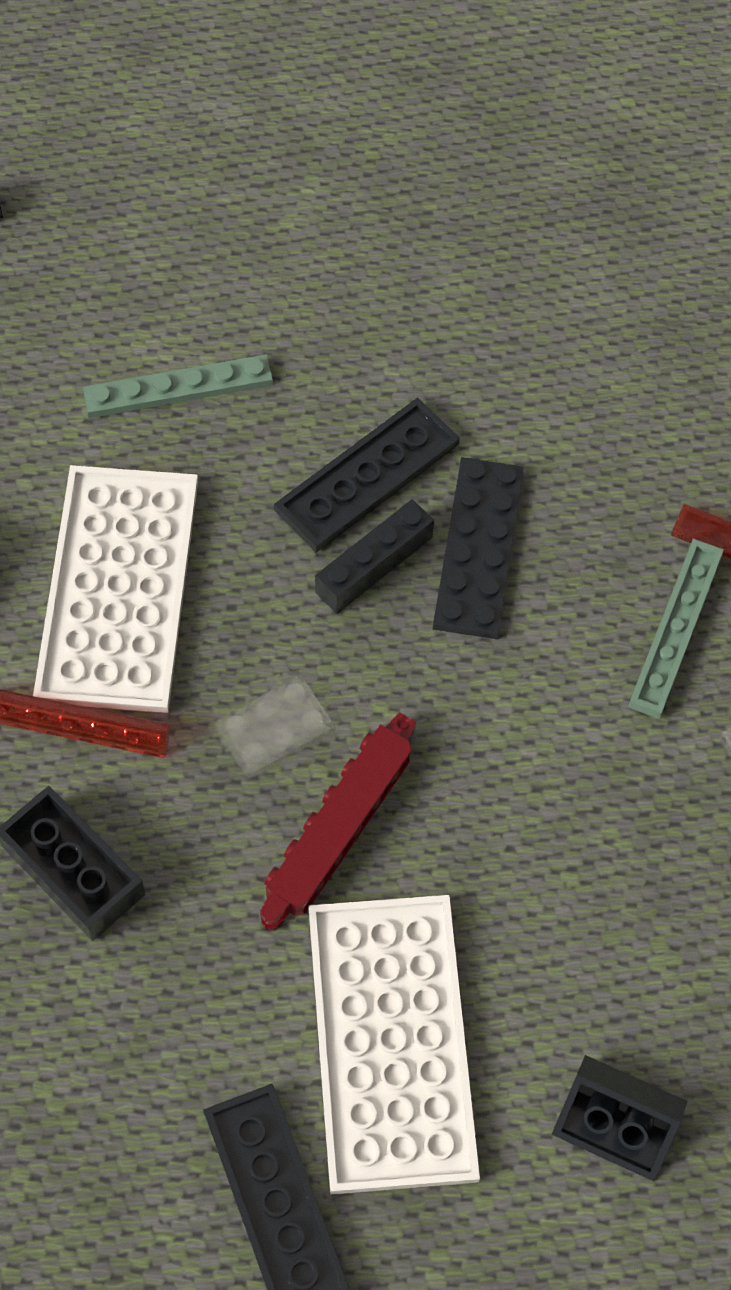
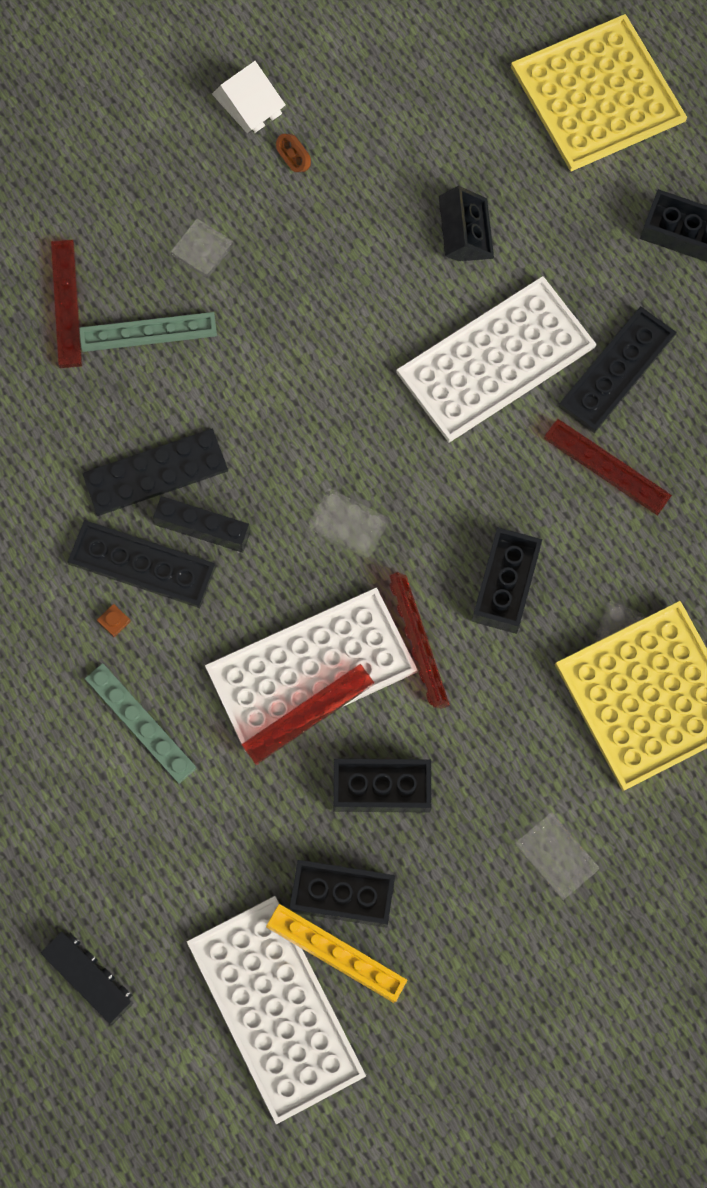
camera: 120 degrees left, 10 degrees up
(60, 545) = (308, 714): none -> clear red plate
(142, 1097) = (607, 467): none -> clear red plate
(317, 416) = (113, 620): none -> dark orange plate
(338, 823) = (387, 450): dark red hinge -> none

